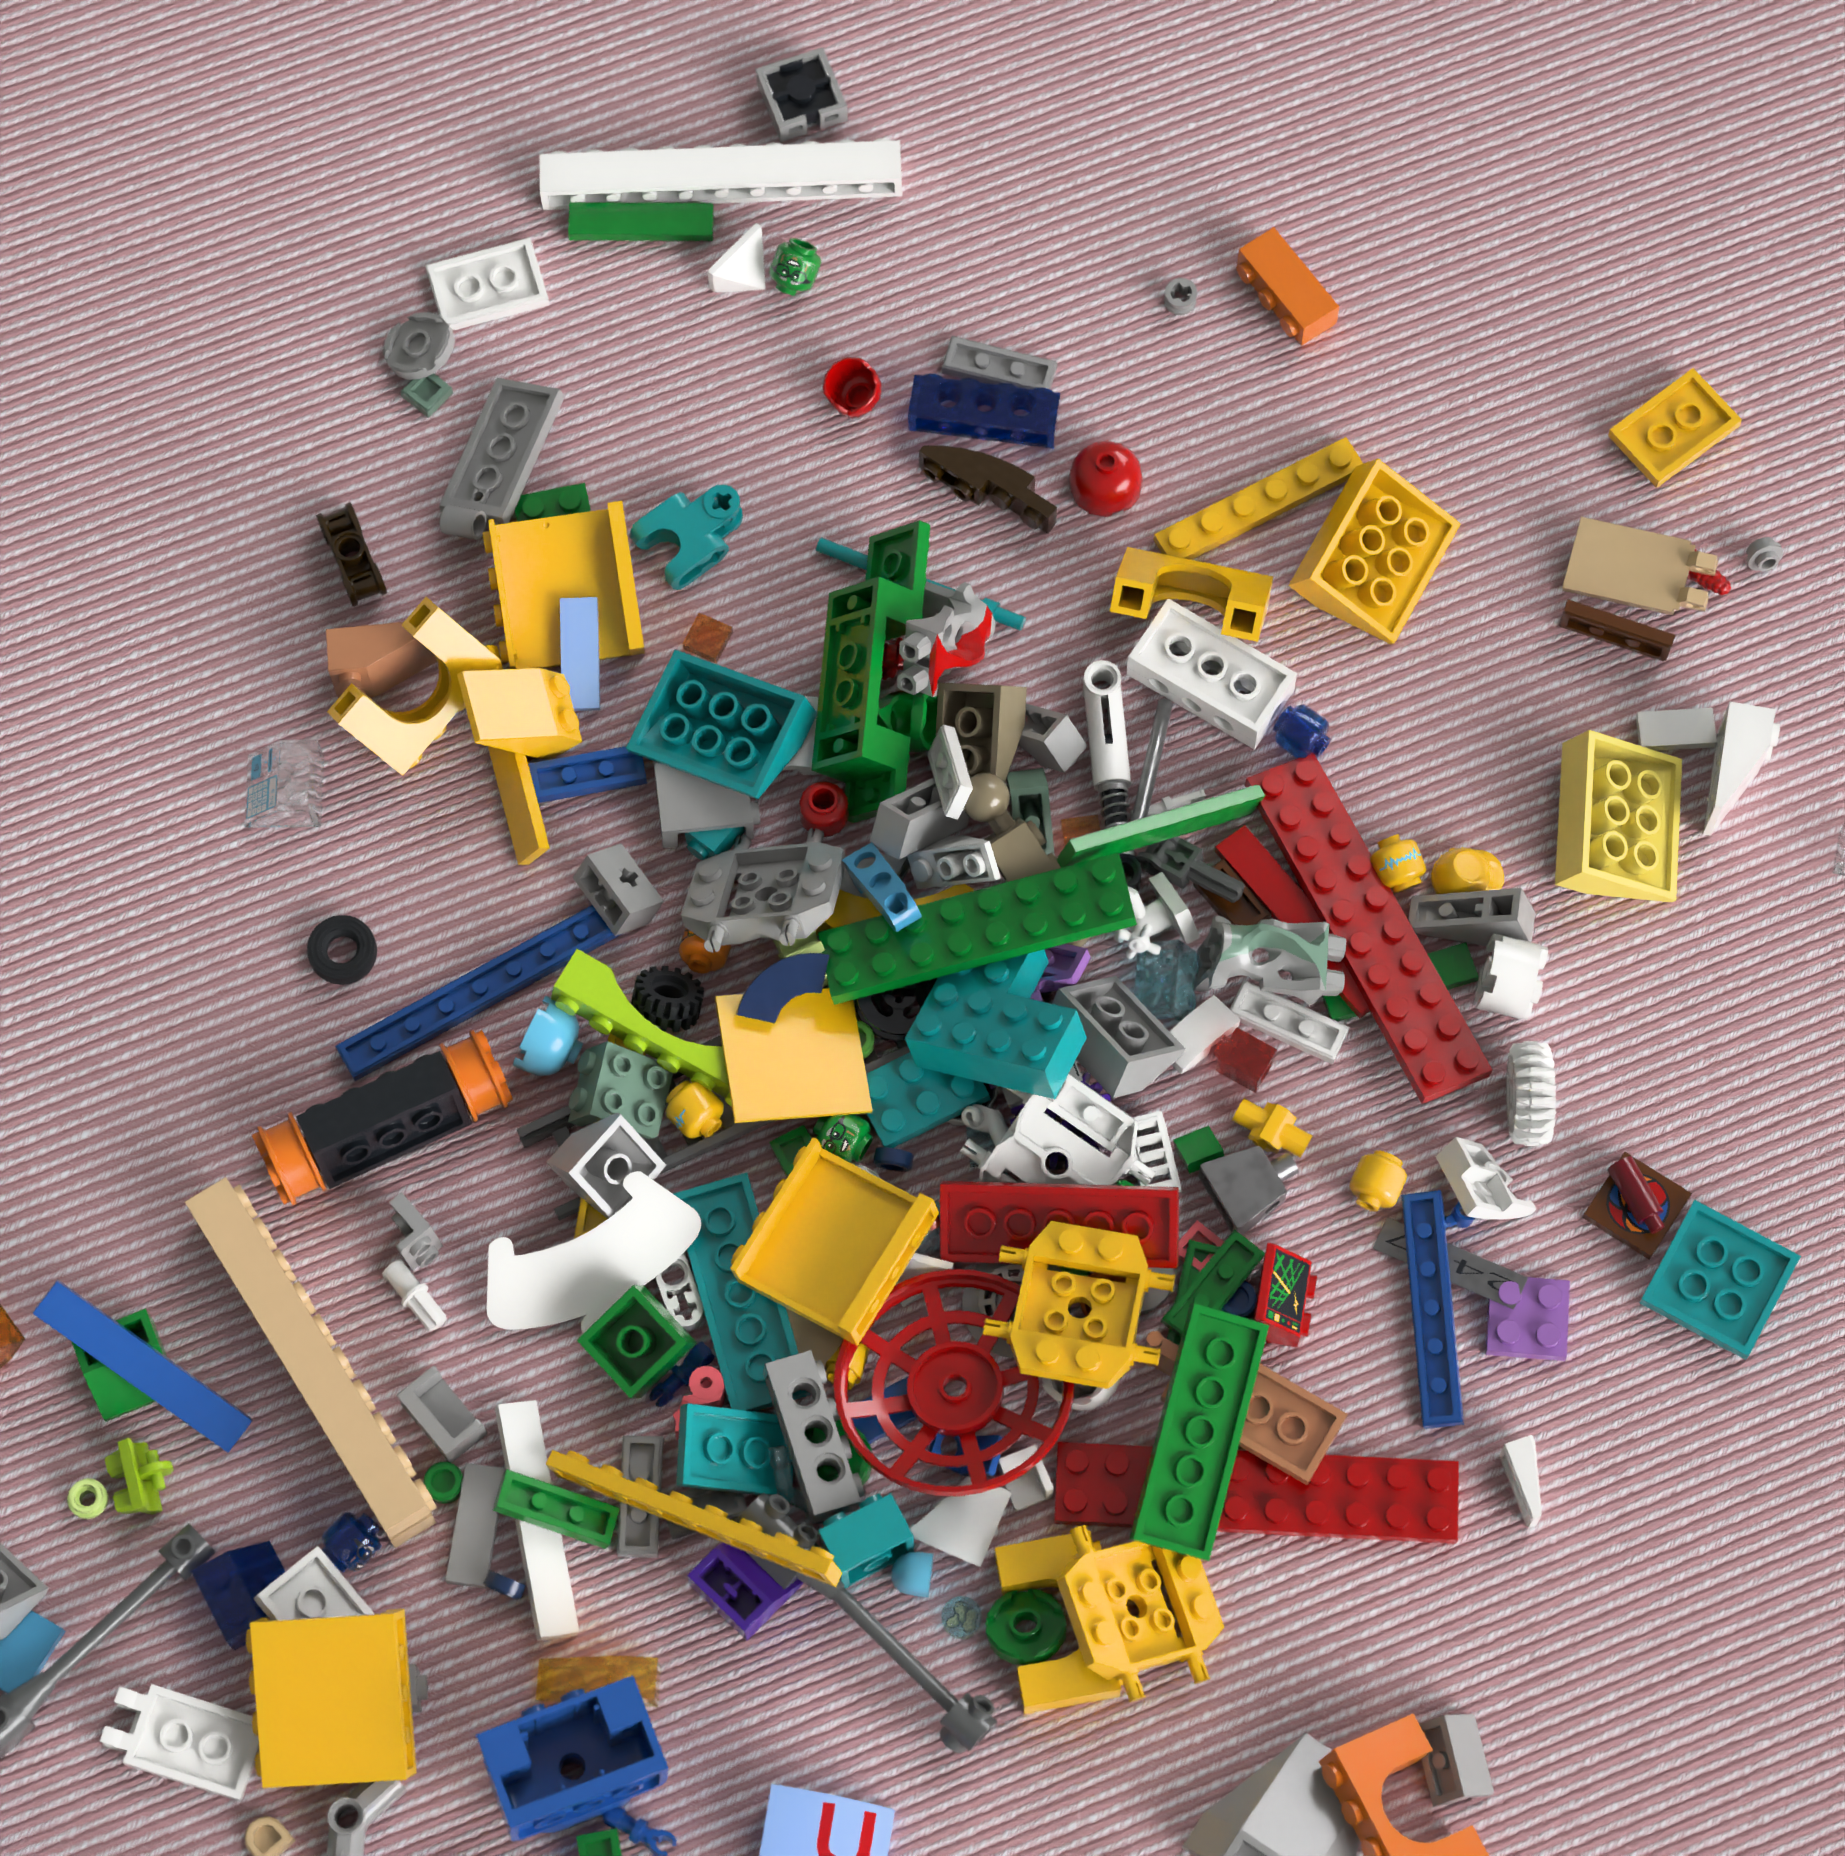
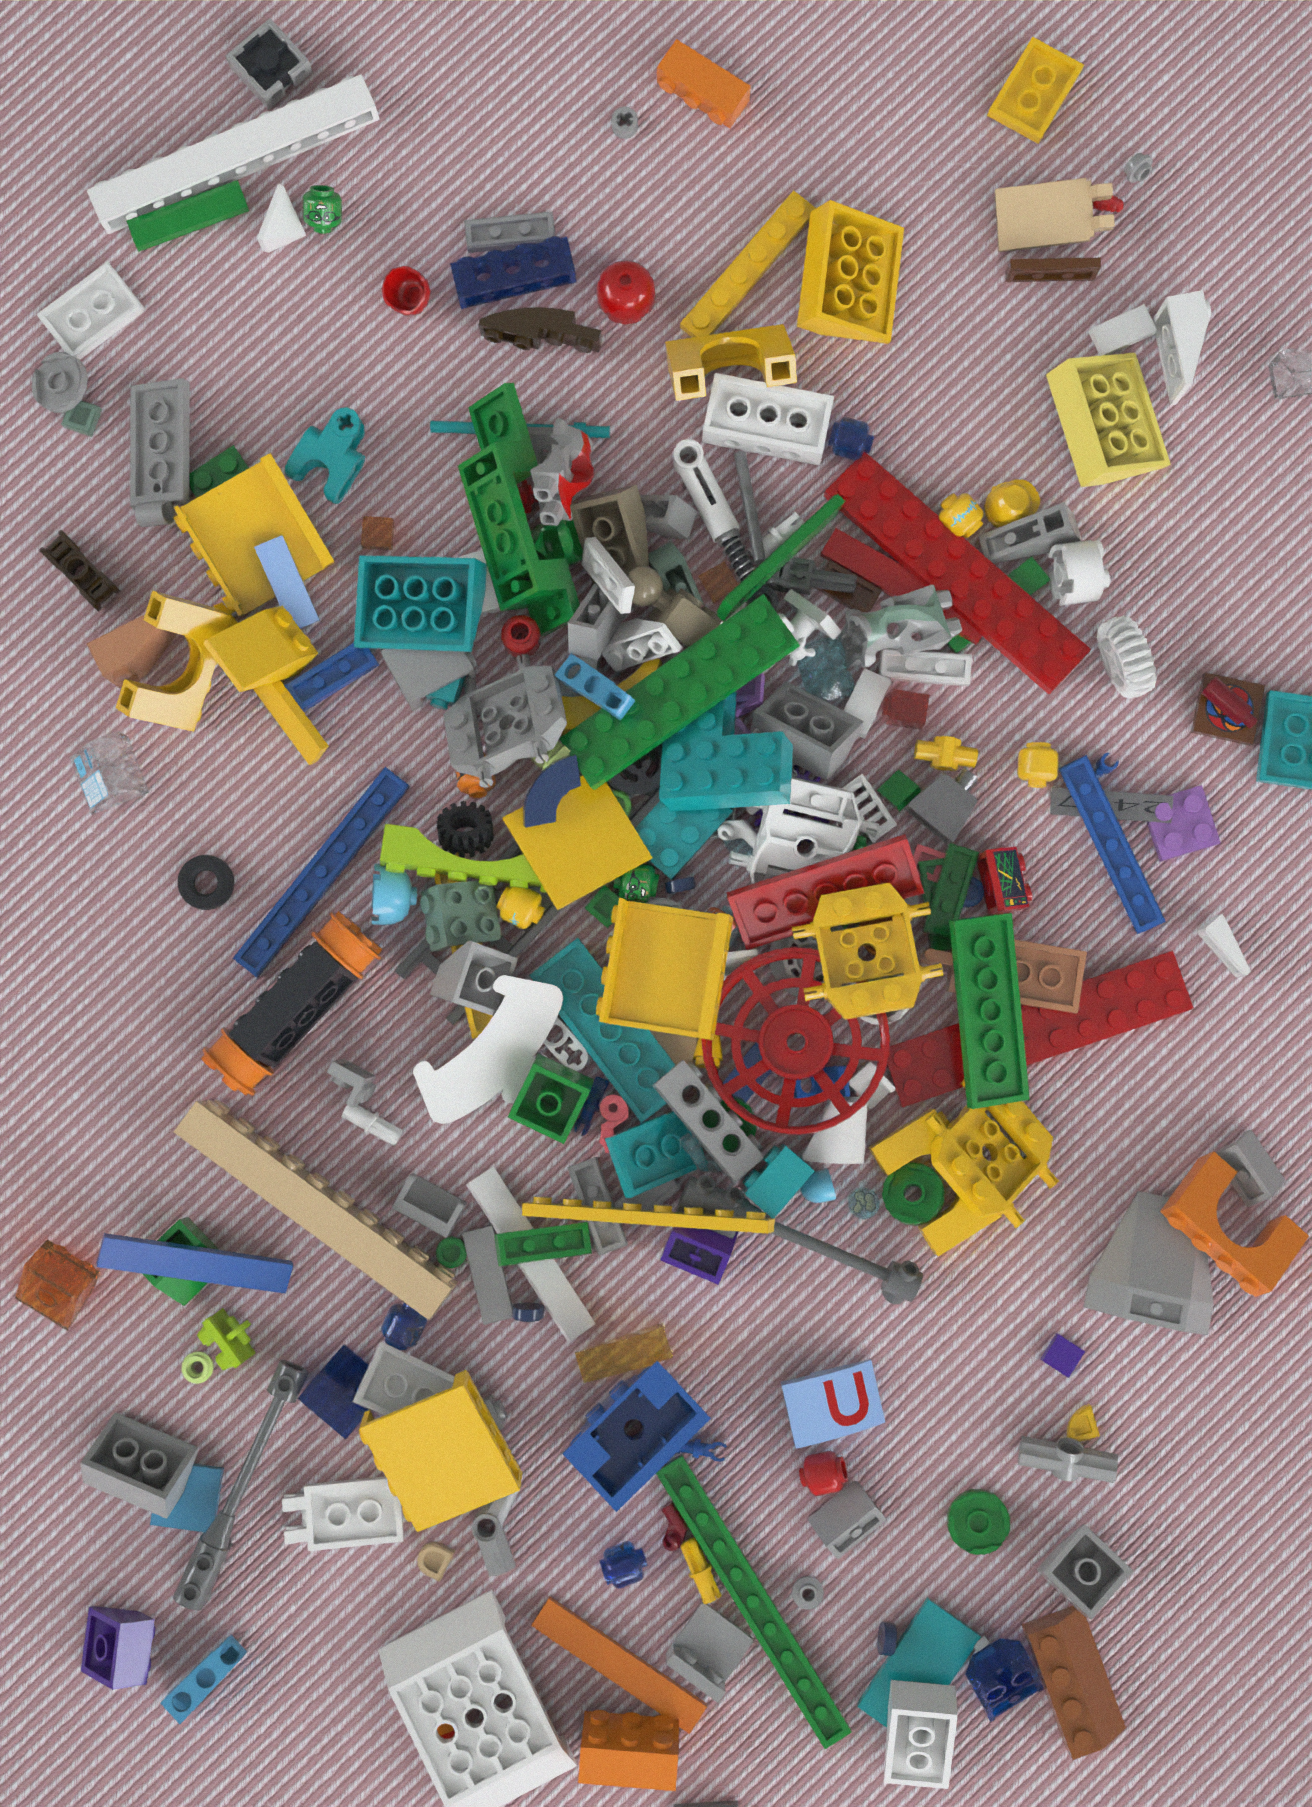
camera: 20 degrees left, 15 degrees up
(618, 889) = (393, 758): light grey brick -> none
(1480, 1182) = (1110, 736): white slope -> none

